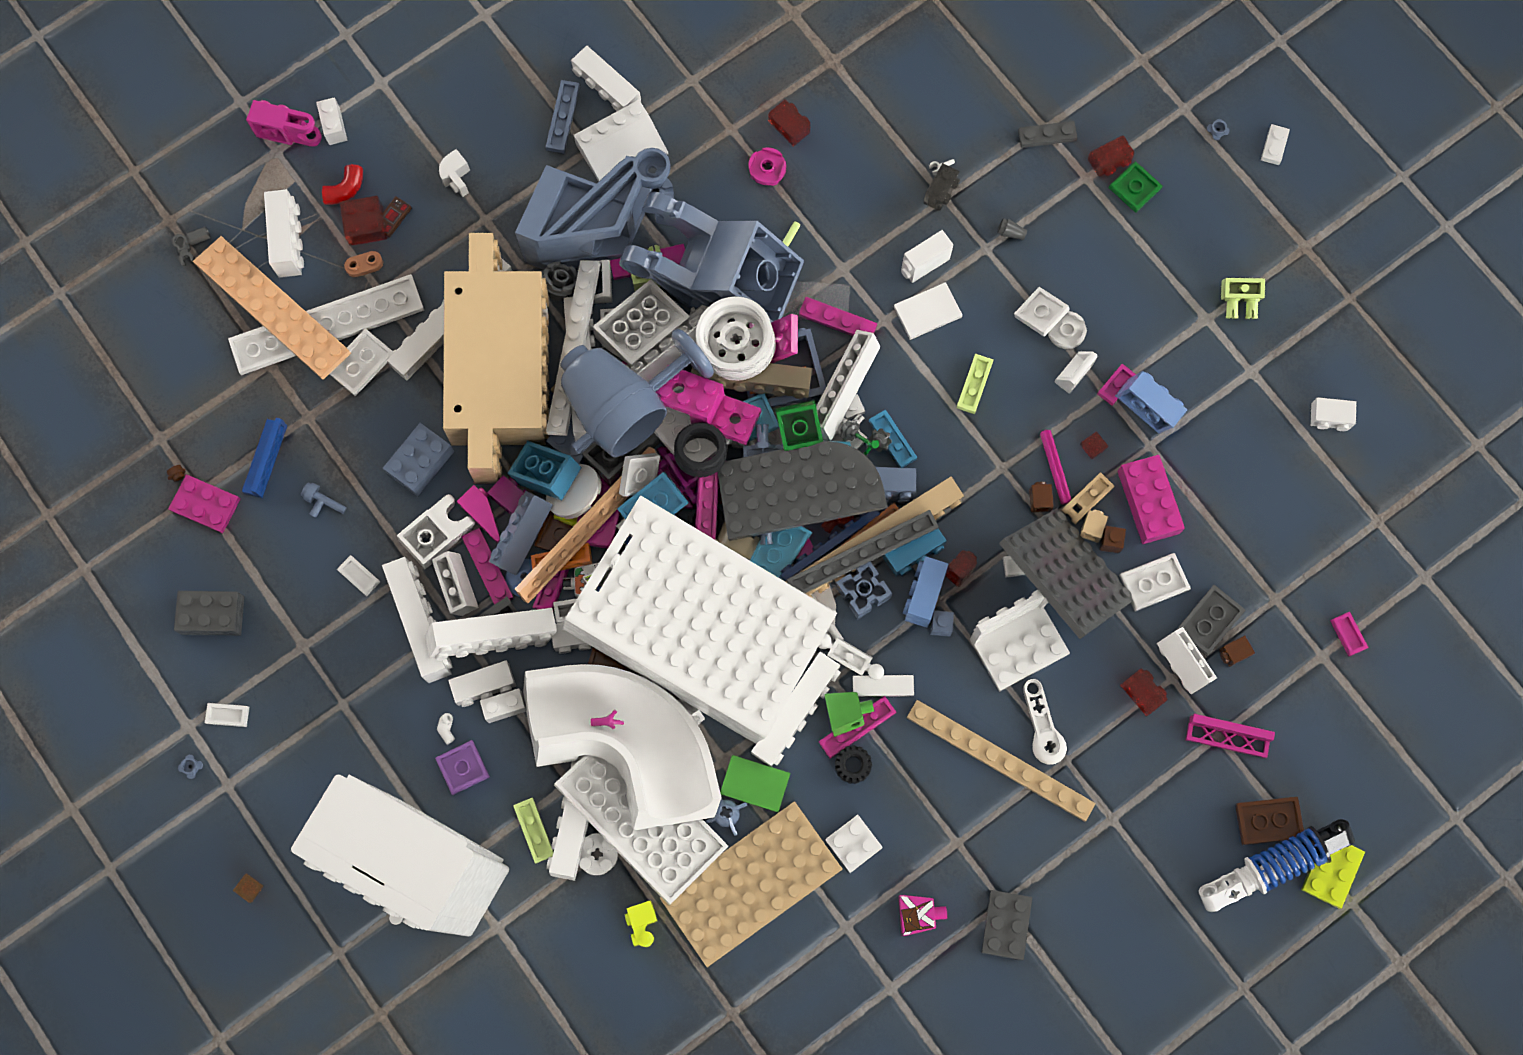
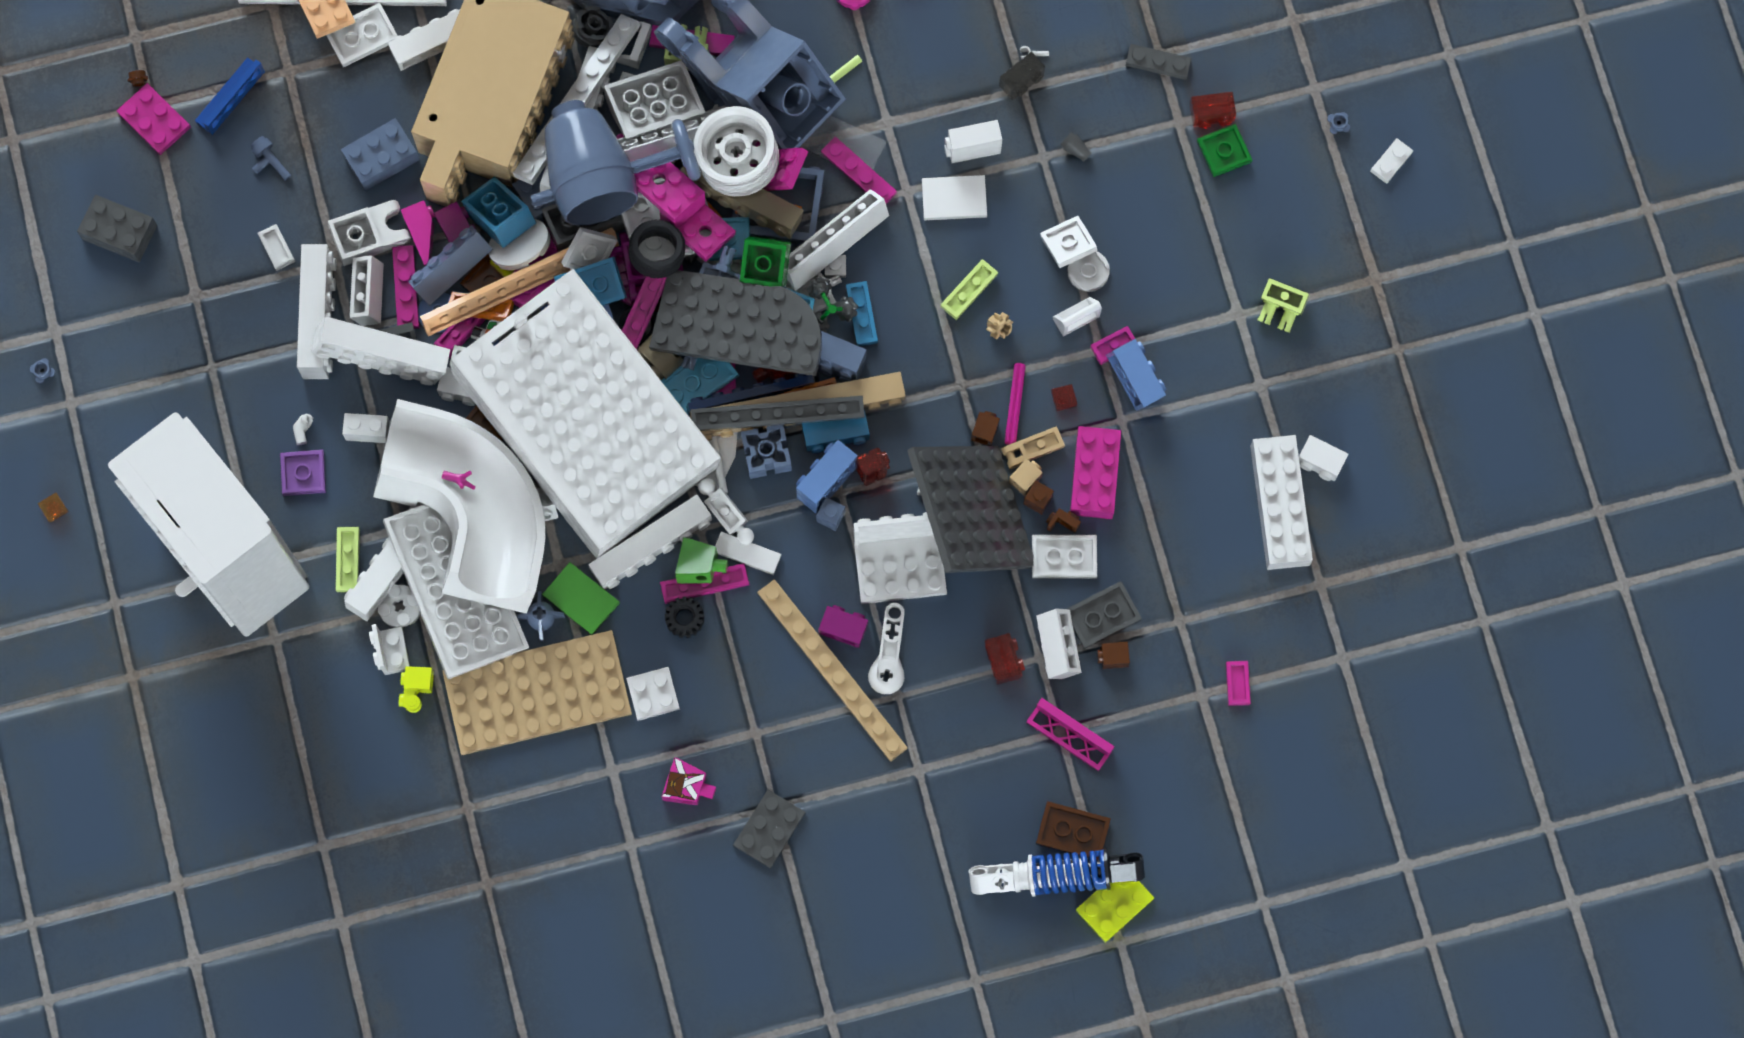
camera: 20 degrees right, 0 degrees up
(227, 715) = (96, 334): white tile -> none
(482, 683) = (354, 398): white brick -> none
(606, 897) = (390, 648): none -> white bracket
(994, 717) = (843, 626): none -> magenta brick
(1014, 404) = (999, 325): none -> tan gear
(1143, 549) = (1068, 520): none -> reddish brown bracket
(1317, 464) = (1281, 502): none -> white brick

